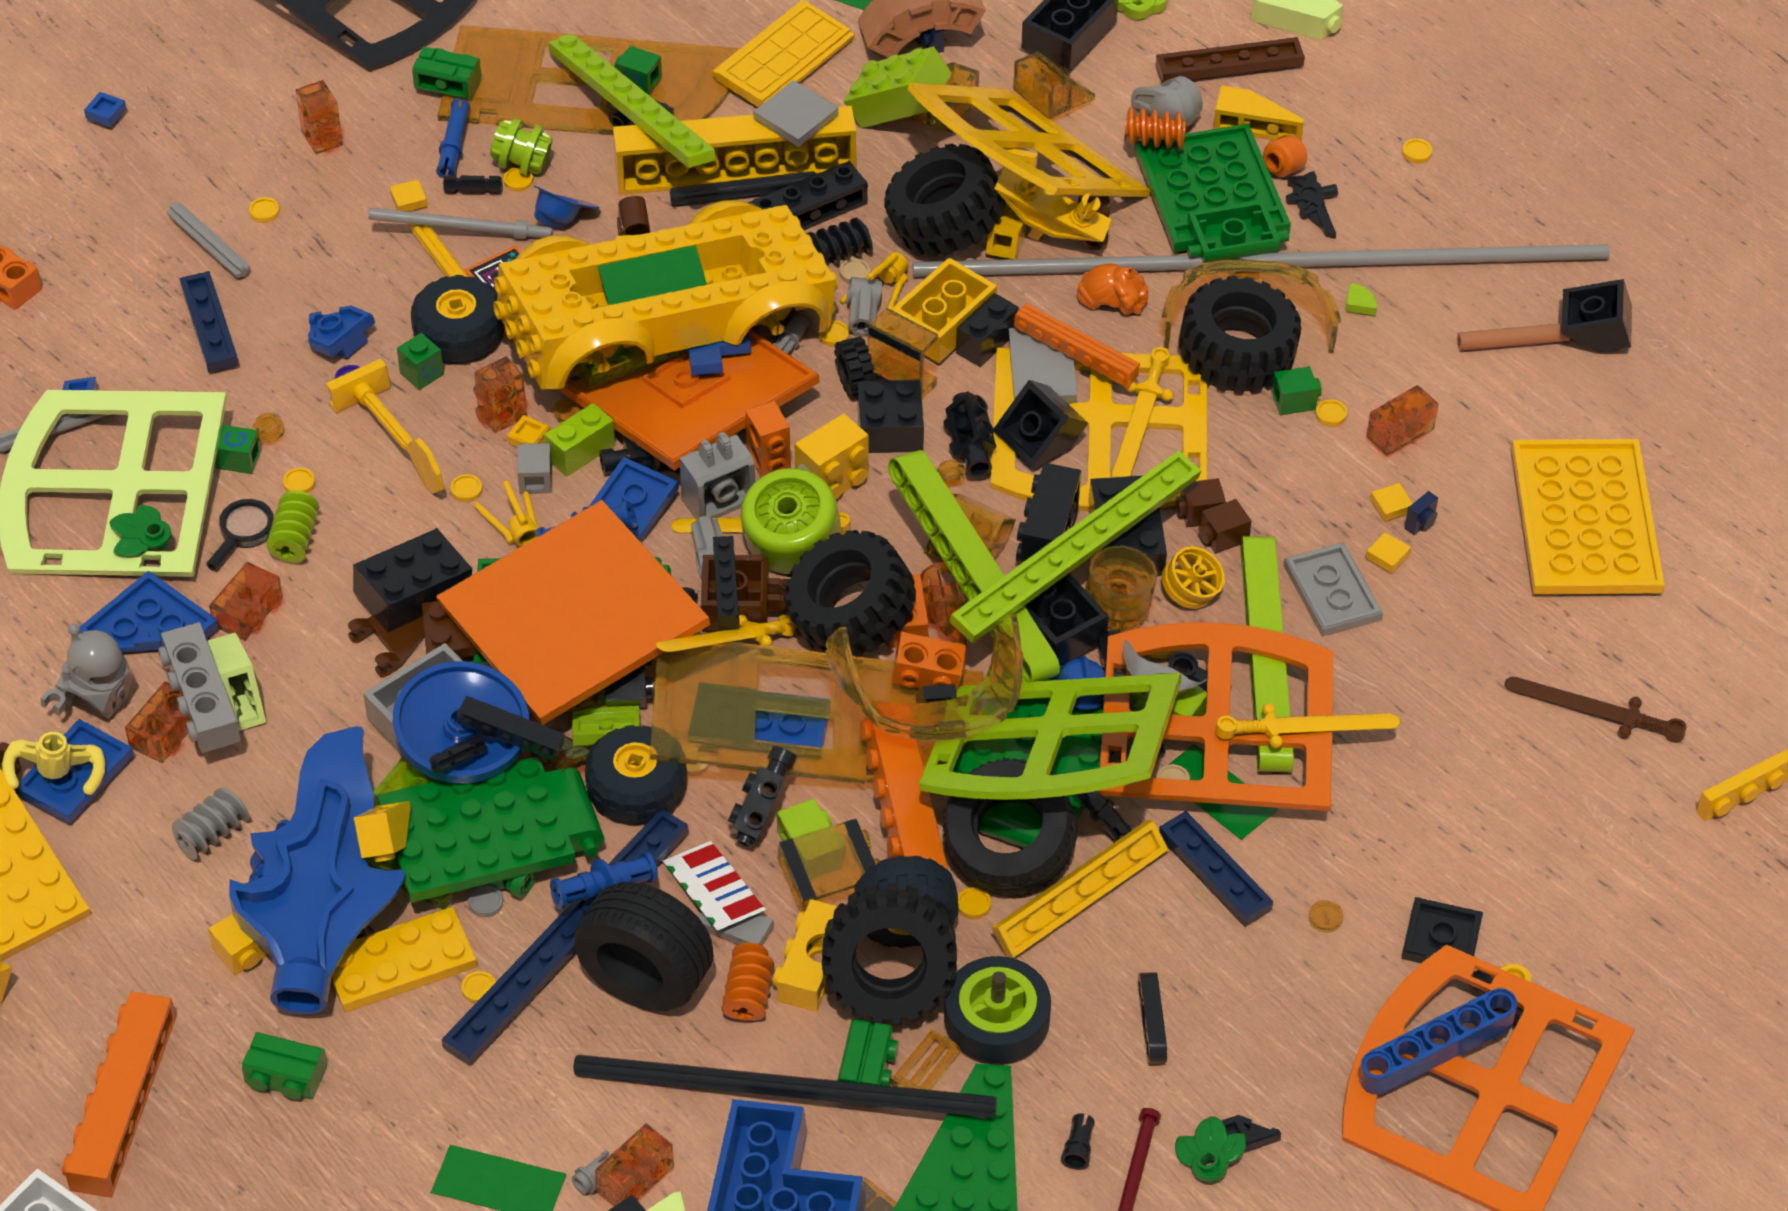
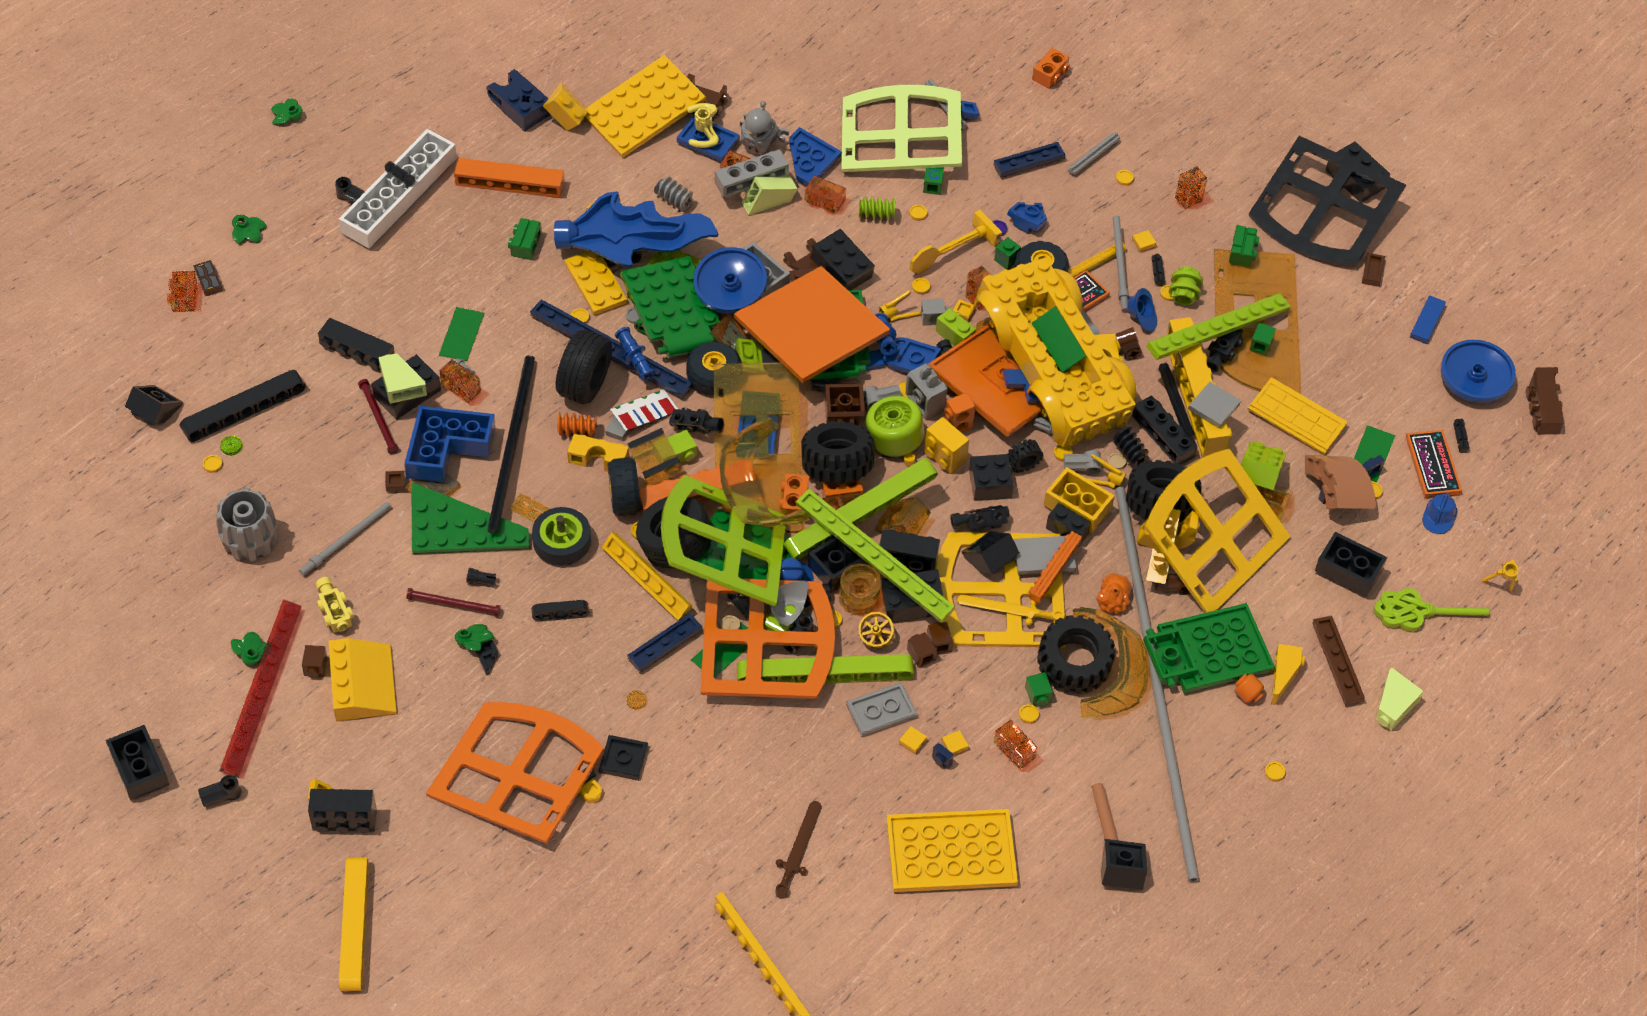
camera: 85 degrees right, 5 degrees up
(105, 109) = (1189, 96): blue plate -> none
(138, 532) = (866, 144): green plate -> none
(242, 525) = (880, 188): piece -> none
(269, 427) = (953, 193): clear yellow plate -> none
(383, 830) = (656, 252): yellow slope -> none
(451, 147) = (1197, 256): blue pin -> none
(458, 754) = (705, 278): black axle -> none
(510, 728) = (722, 298): black piece -> none
(725, 582) = (838, 391): black piece -> none
(746, 630) = (814, 413): yellow sword -> none
(868, 1053) = (529, 479): green brick -> none
(889, 997) = (580, 473): black tyre -> none
(899, 349) = (1028, 476): clear yellow panel -> none
(936, 693) = (771, 499): black plate -> none
(951, 472) = (950, 508): clear yellow plate -> none
(1048, 85) = (1292, 556): clear yellow slope -> none
(1103, 812) = (694, 587): black pin -> none
(1155, 128) = (1250, 608): orange piece -> none
(1173, 96) = (1282, 623): light grey helmet -> none
(1272, 725) = (755, 663): yellow sword -> none
(1310, 200) = (1217, 706): black piece -> none
(1361, 300) = (1127, 731): lime tile -> none
(1429, 1054) = (538, 746): blue beam -> none

